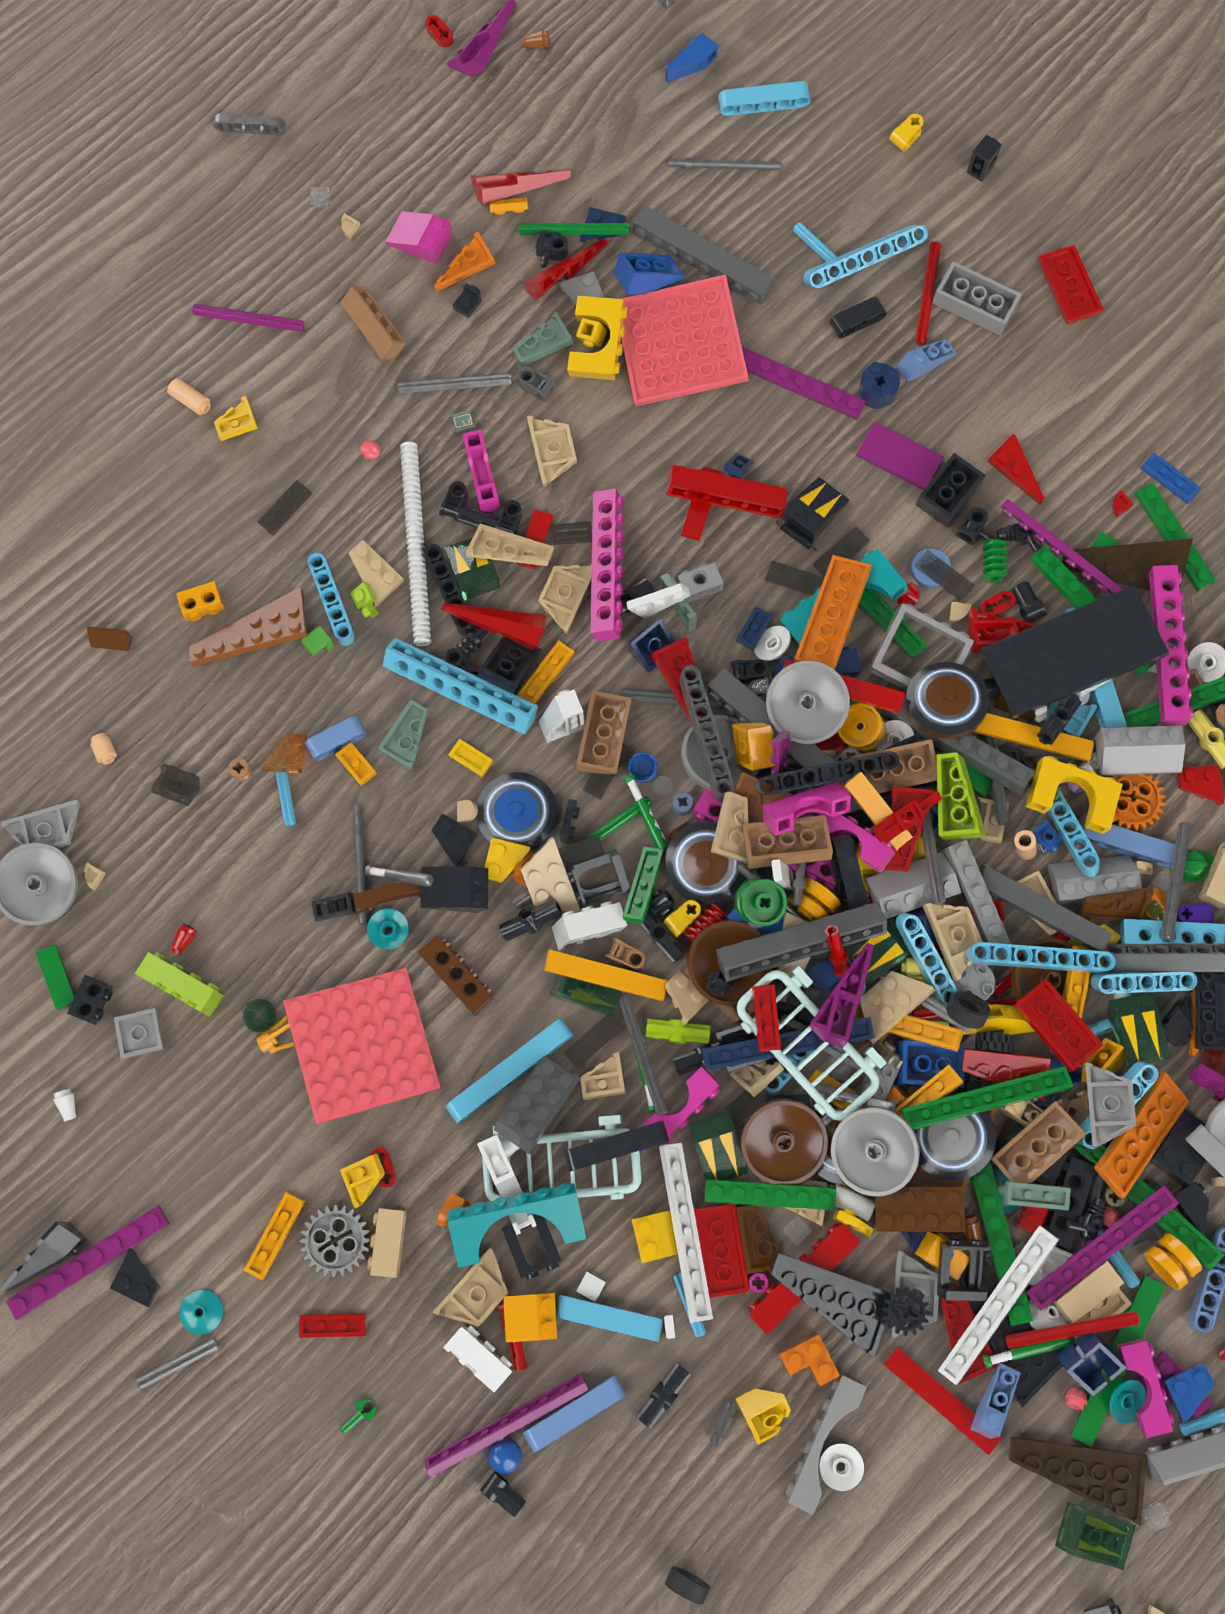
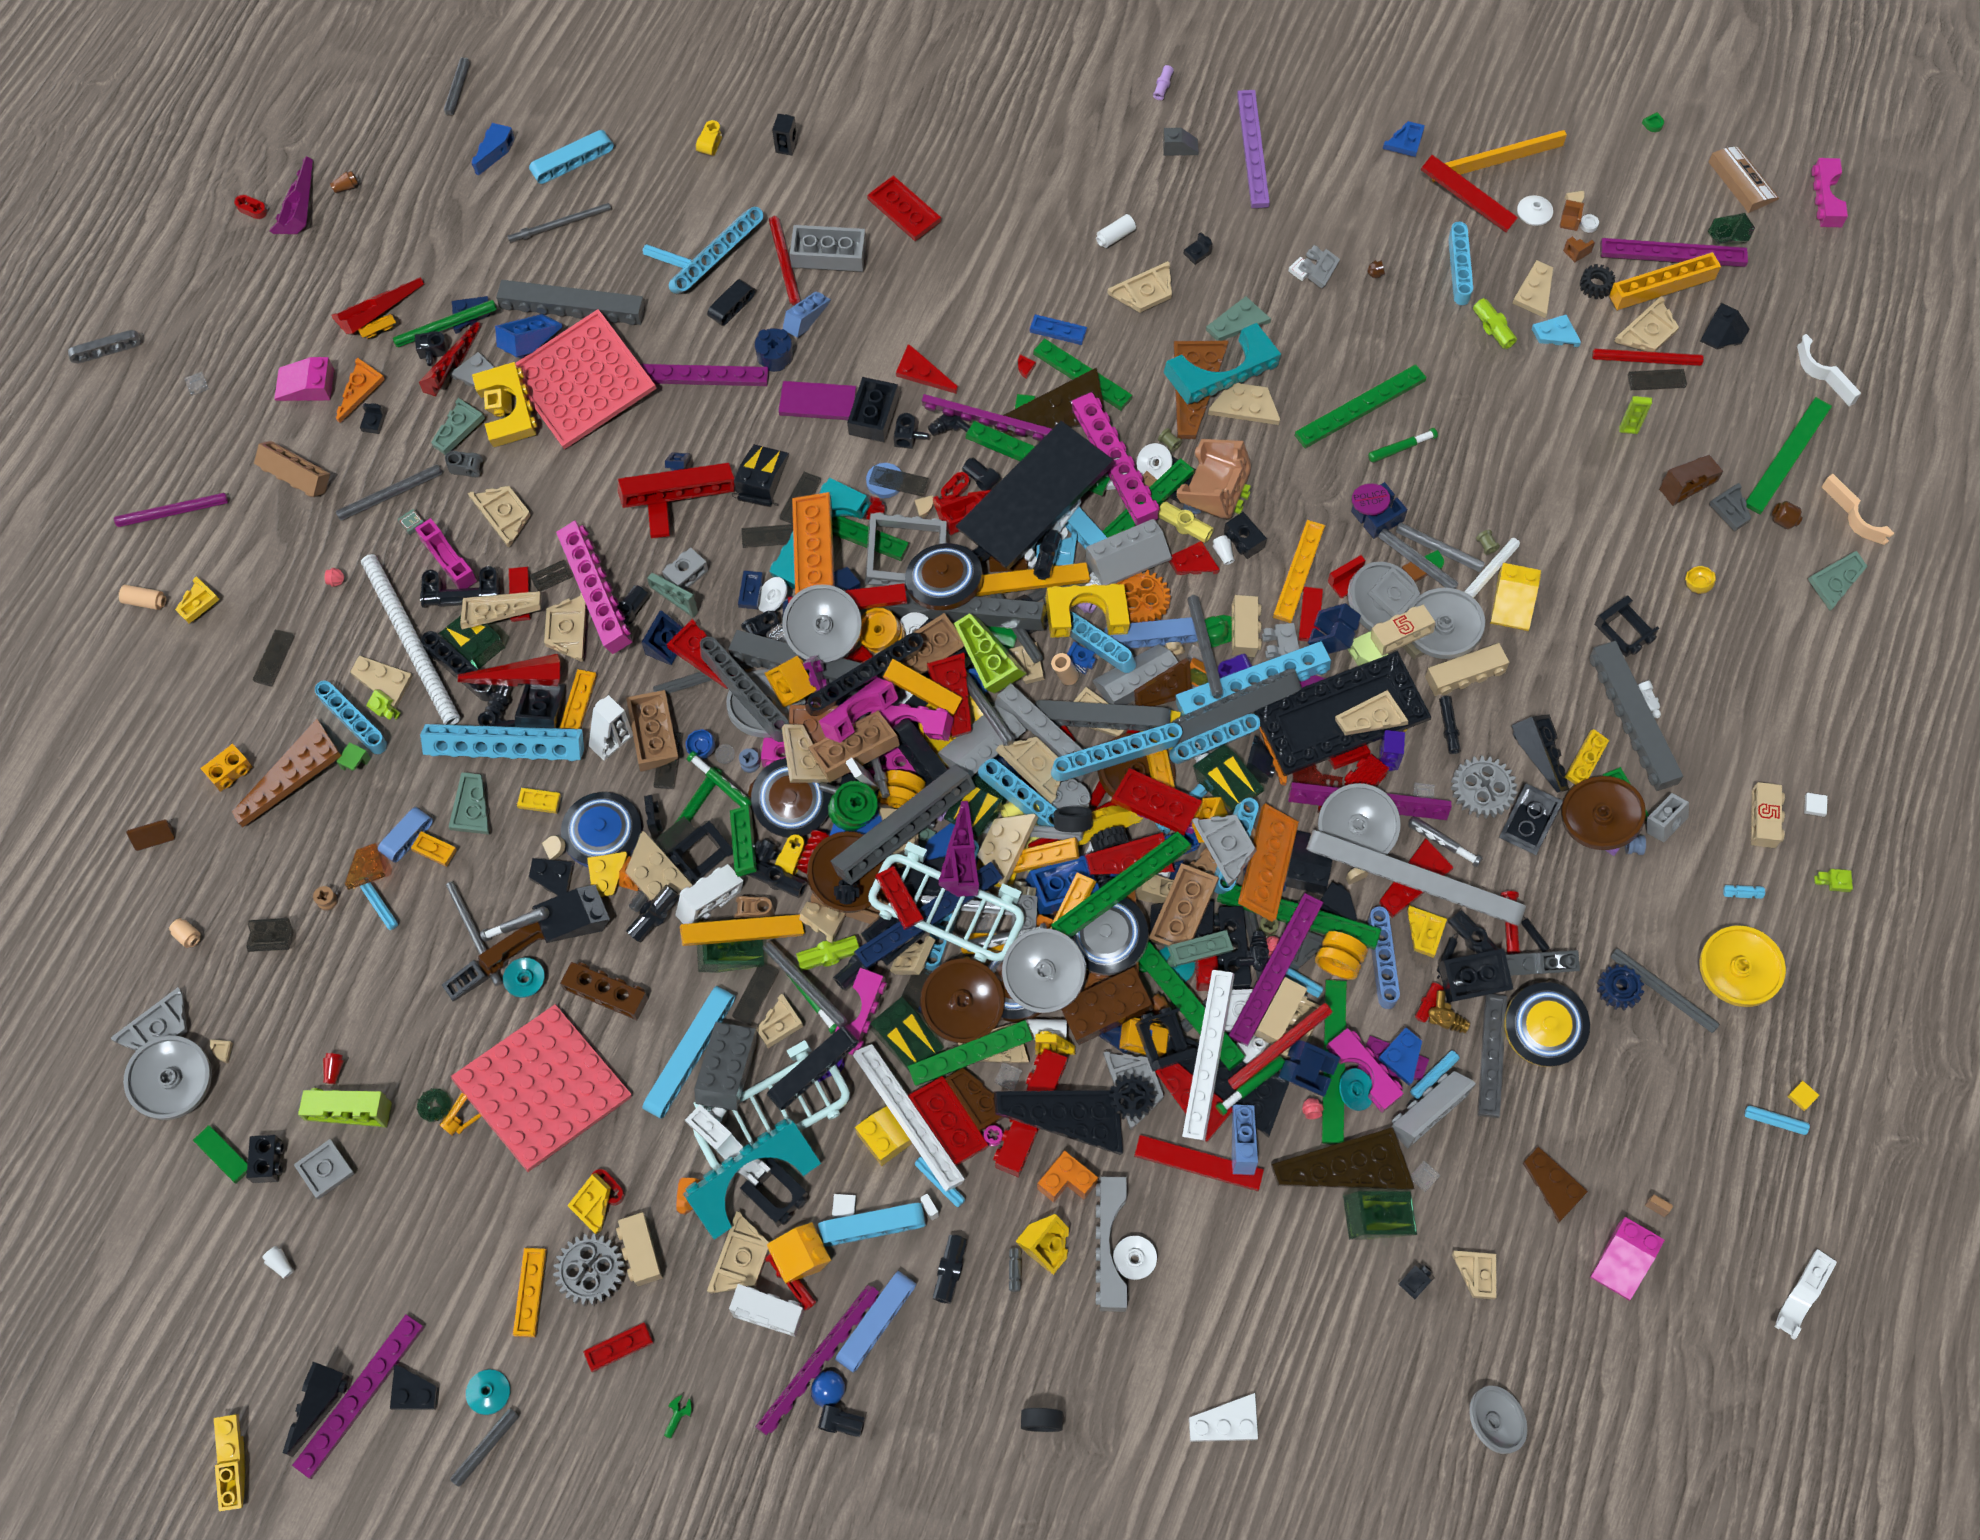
camera: 25 degrees left, 10 degrees down
(349, 225) = (234, 397): tan tile -> none
(657, 601) = (653, 596): white wing -> none
(838, 956) = (941, 824): red pin -> none
(898, 822) = (943, 688): red piece -> none
(994, 561) = (937, 452): green piece -> none

